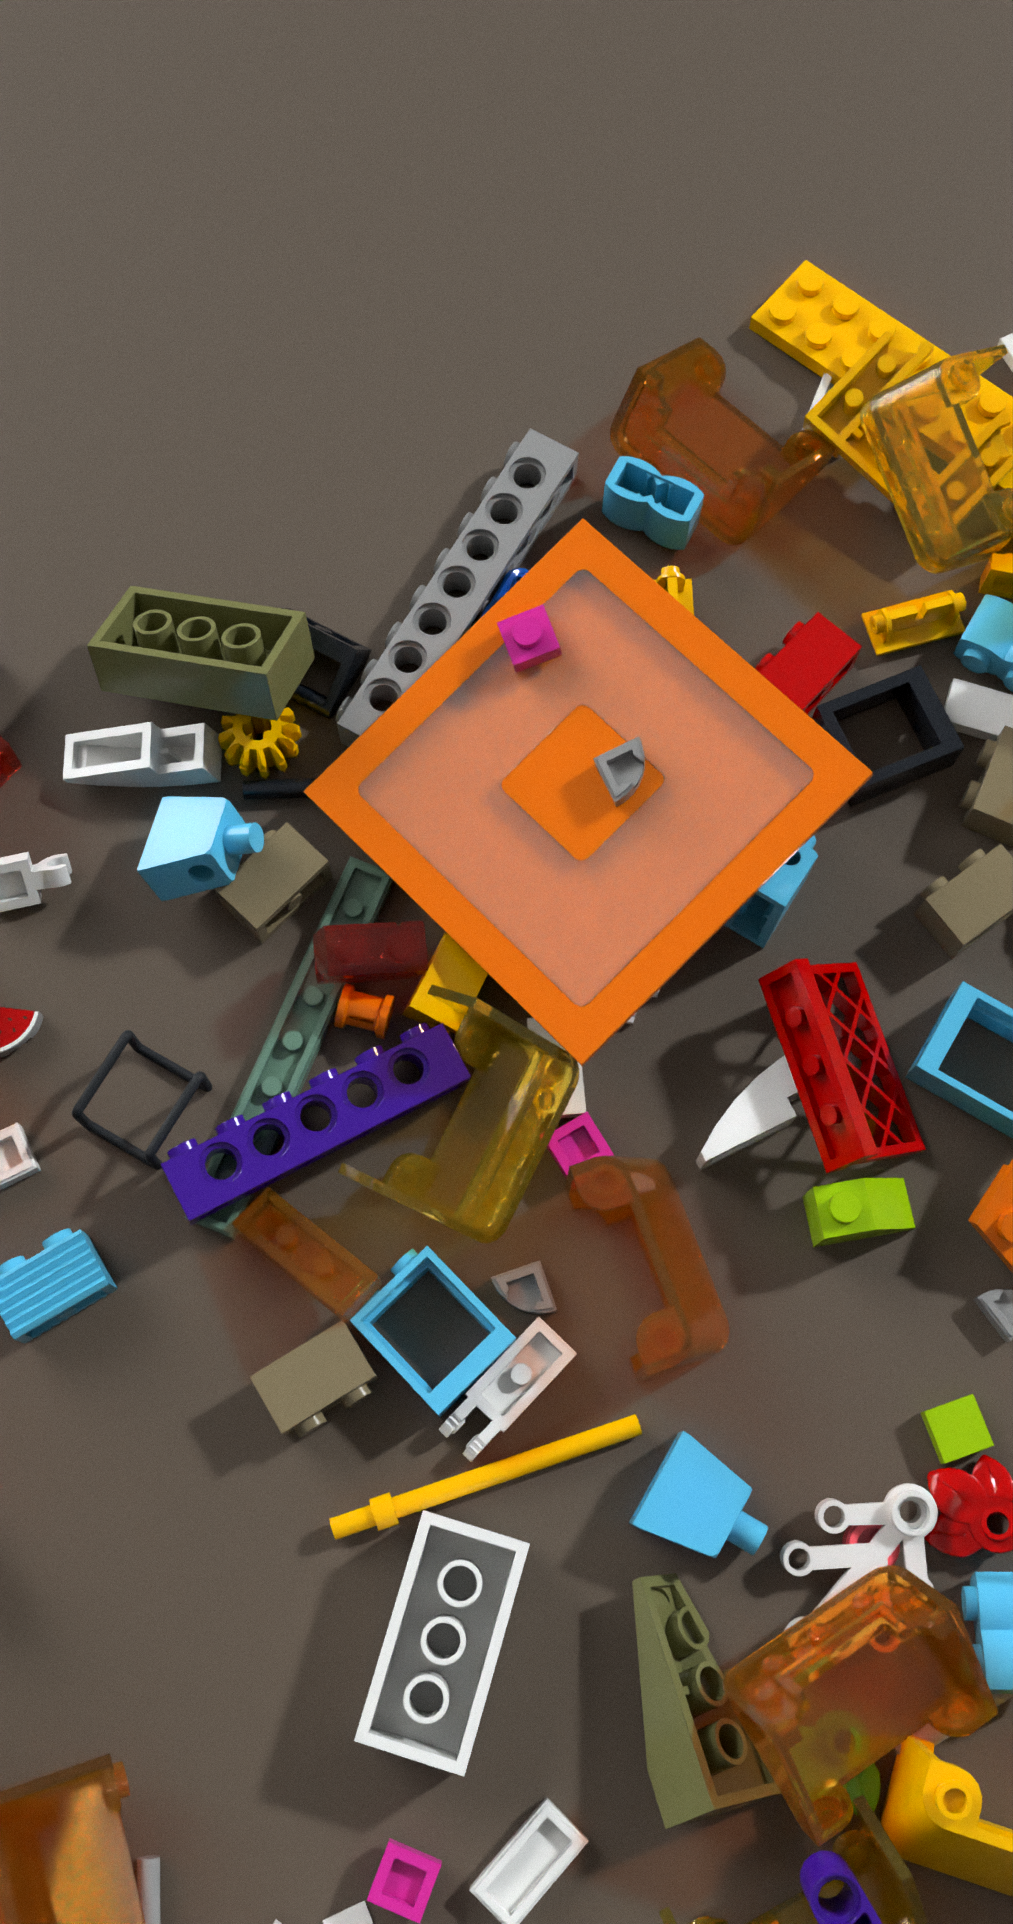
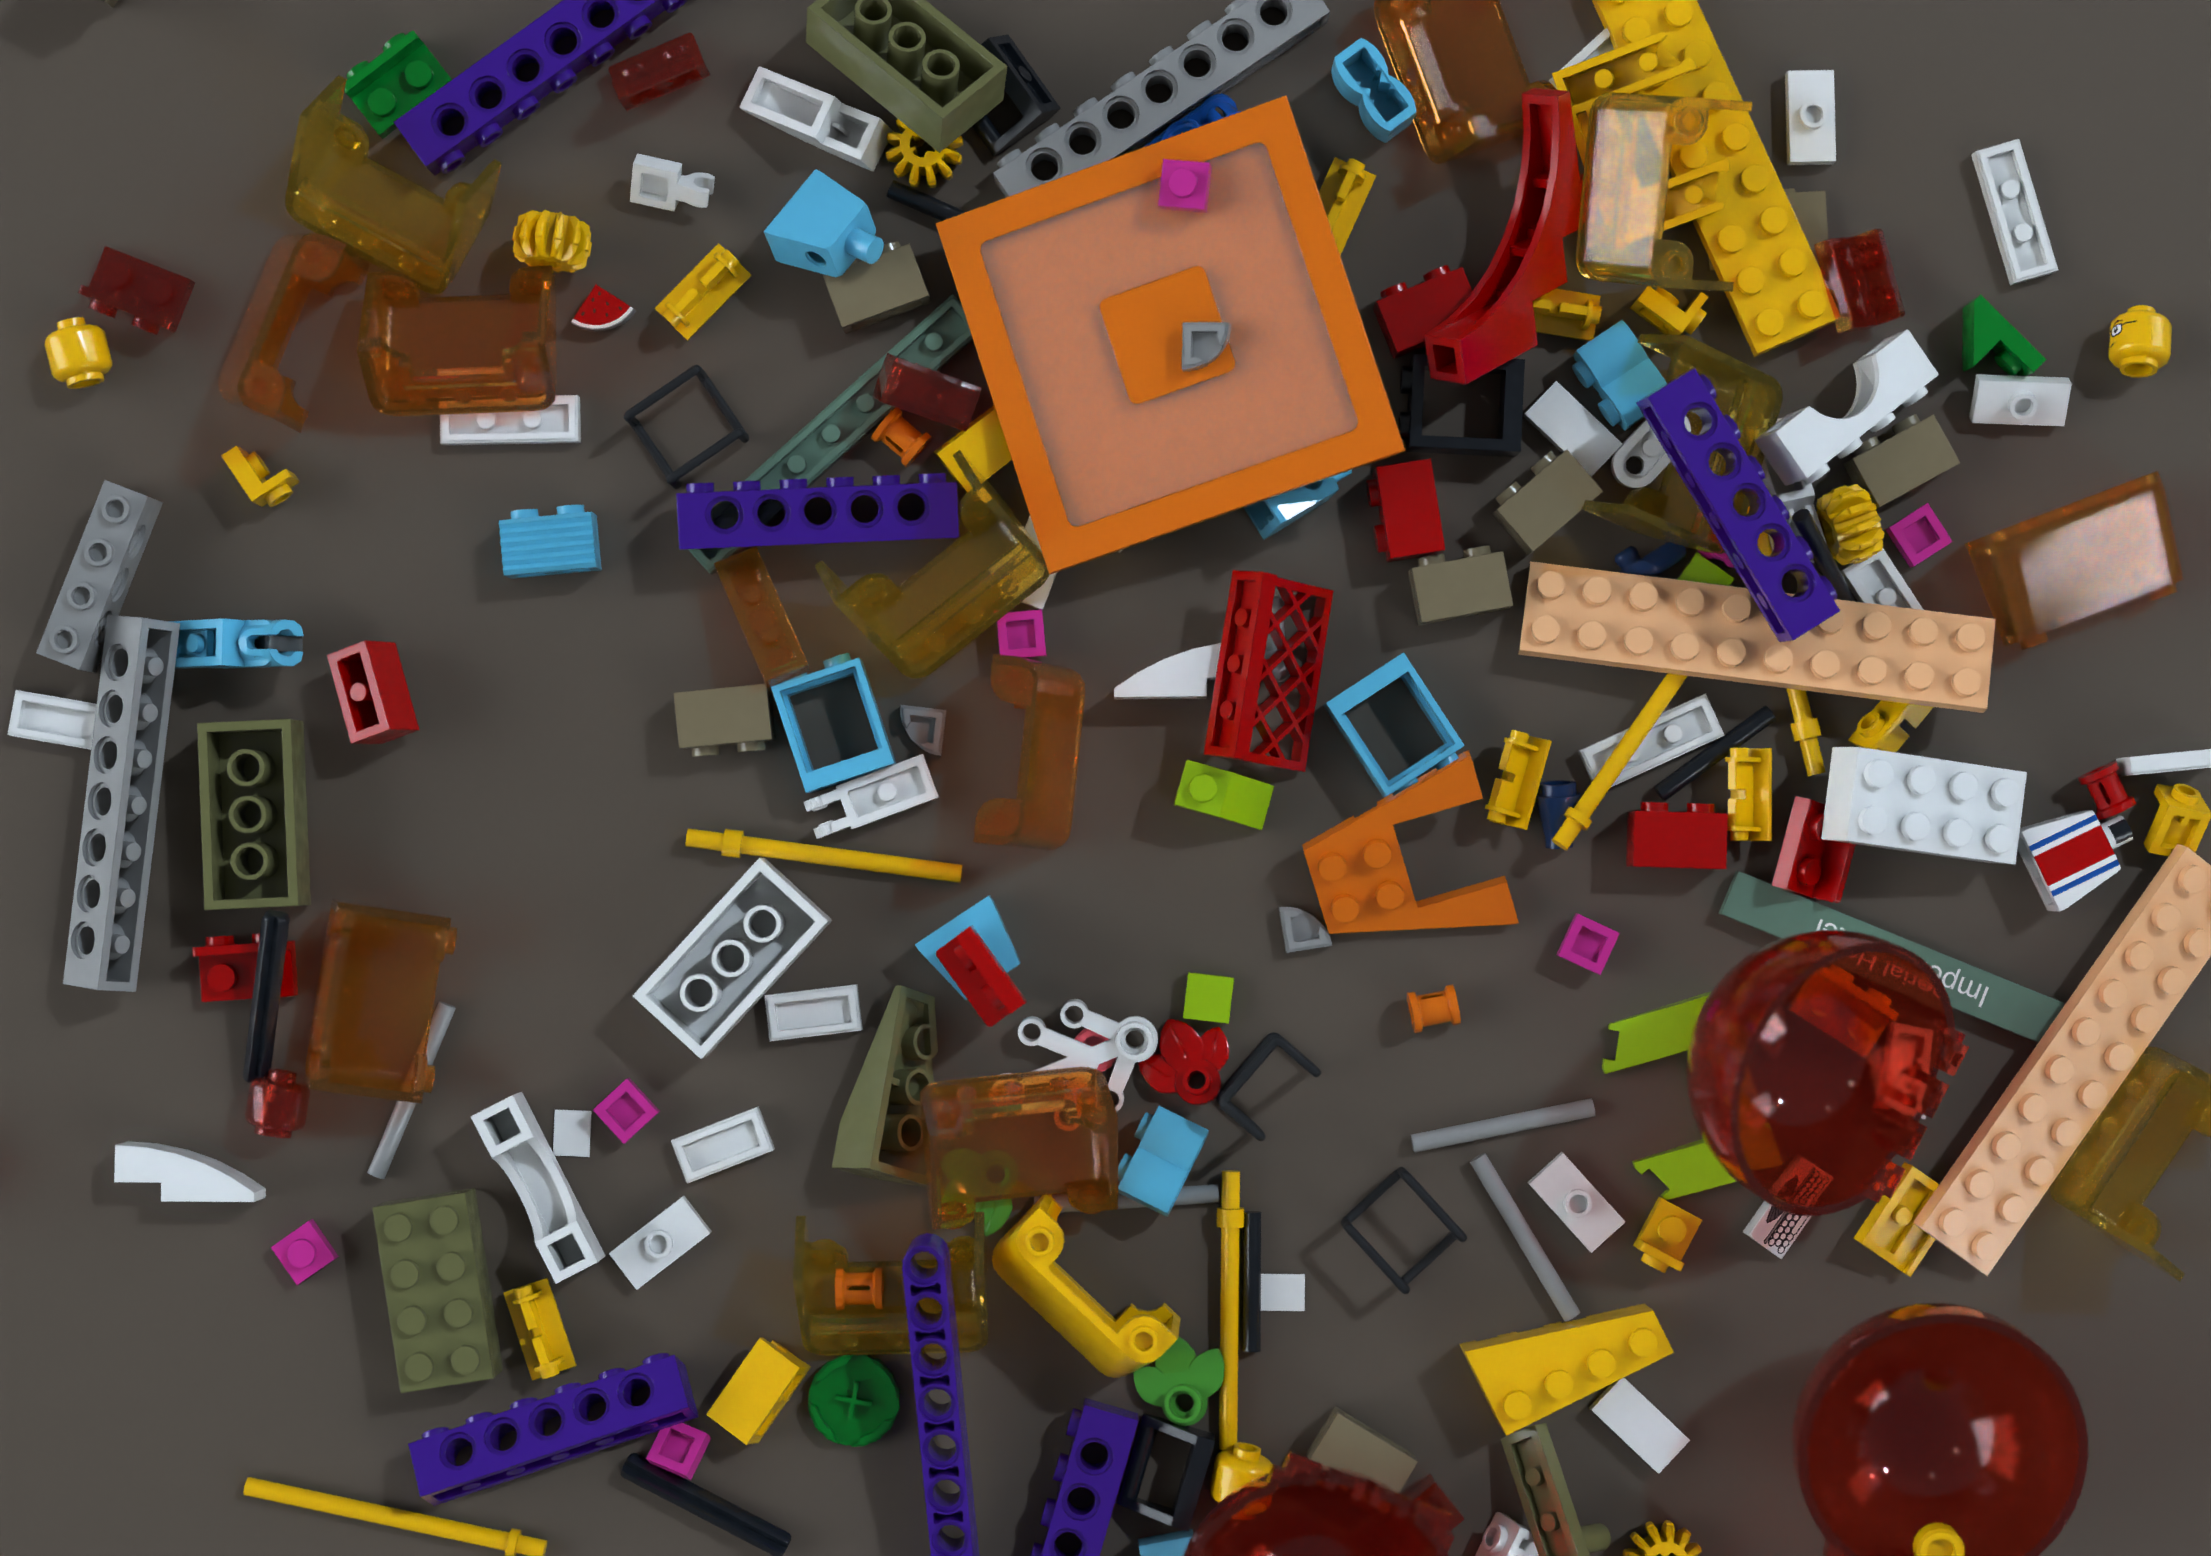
camera: 25 degrees right, 15 degrees up
(102, 964) = (703, 291): none -> yellow hinge
(556, 1657) = (813, 1012): none -> white tile
(724, 1522) = (980, 976): none -> red bracket
(876, 633) = (1530, 260): none -> red arch
(886, 853) = (1407, 510): none -> red brick

